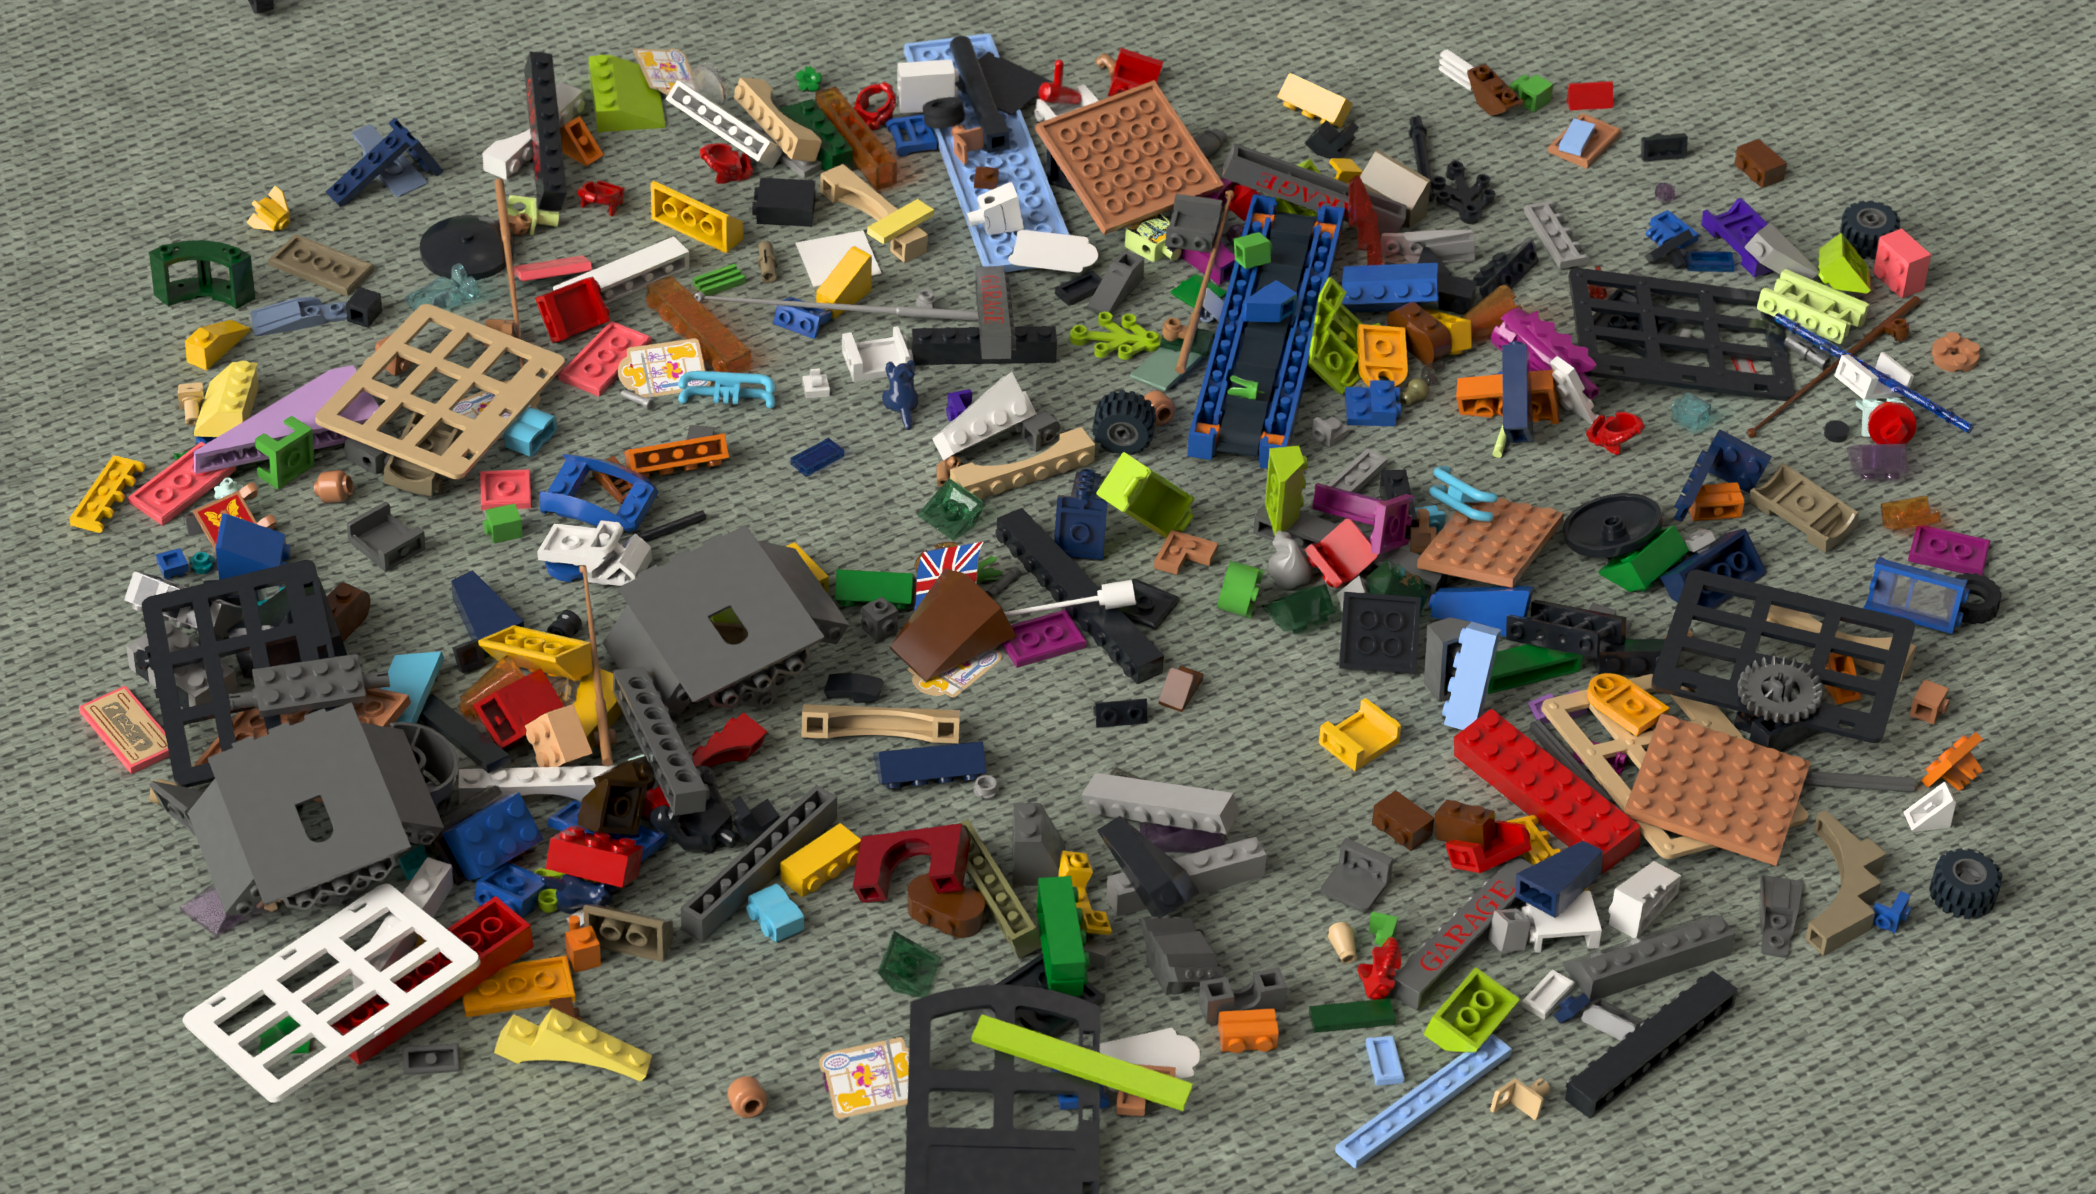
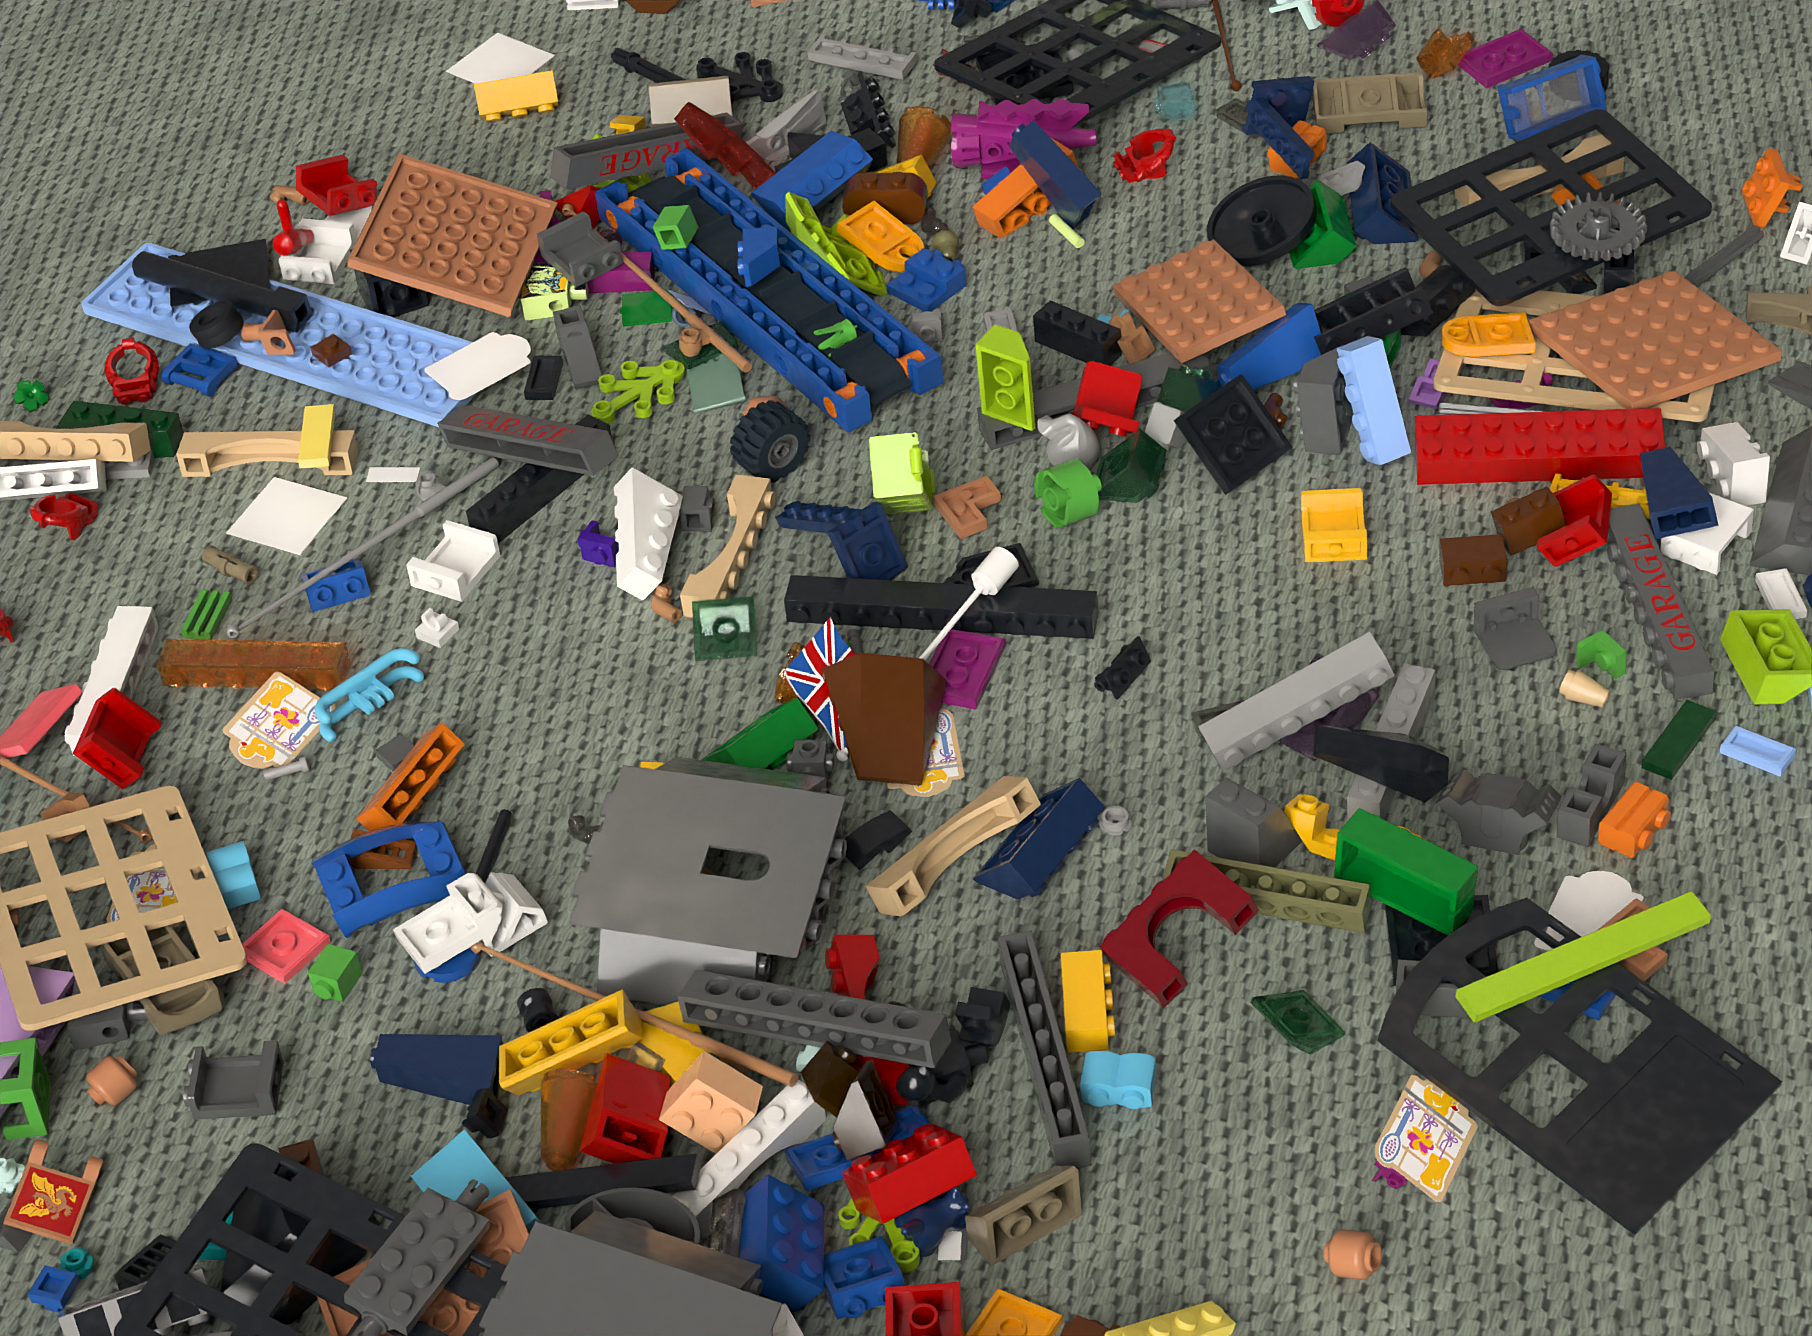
camera: 40 degrees left, 0 degrees up
(248, 547) = (125, 1209): blue slope -> none
(582, 946) = (1006, 1265): orange brick -> none
(599, 361) = (201, 760): coral tile -> none
(695, 218) = (108, 578): yellow slope -> none
(784, 202) = (171, 504): black brick -> none
(817, 457) = (532, 684): clear blue tile -> none
(847, 281) = (339, 517): yellow slope -> none
(868, 151) = (197, 407): clear orange brick -> none
(901, 394) = (533, 572): dark blue animal -> none
(924, 279) = (392, 474): none -> white sticker
(925, 82) = (167, 312): white brick -> none
(950, 912) = (1260, 945): reddish brown brick -> none
(998, 211) = (395, 361): white torso -> none
(1180, 687) = (1137, 610): slope -> none
(1331, 143) = (577, 118): black brick -> none
(1349, 73) = (500, 59): none -> white piece
(1379, 975) = (1670, 688): red piece -> none
(1387, 516) = (1088, 346): magenta bracket -> none
(1459, 493) = (1122, 284): medium azure piece -> none
(1509, 930) = (1690, 568): light grey brick -> none
(1570, 390) = (1081, 139): white wing -> none
(1836, 431) = (1291, 38): black tile -> none
(1930, 702) = (1678, 159): nougat brick -> none

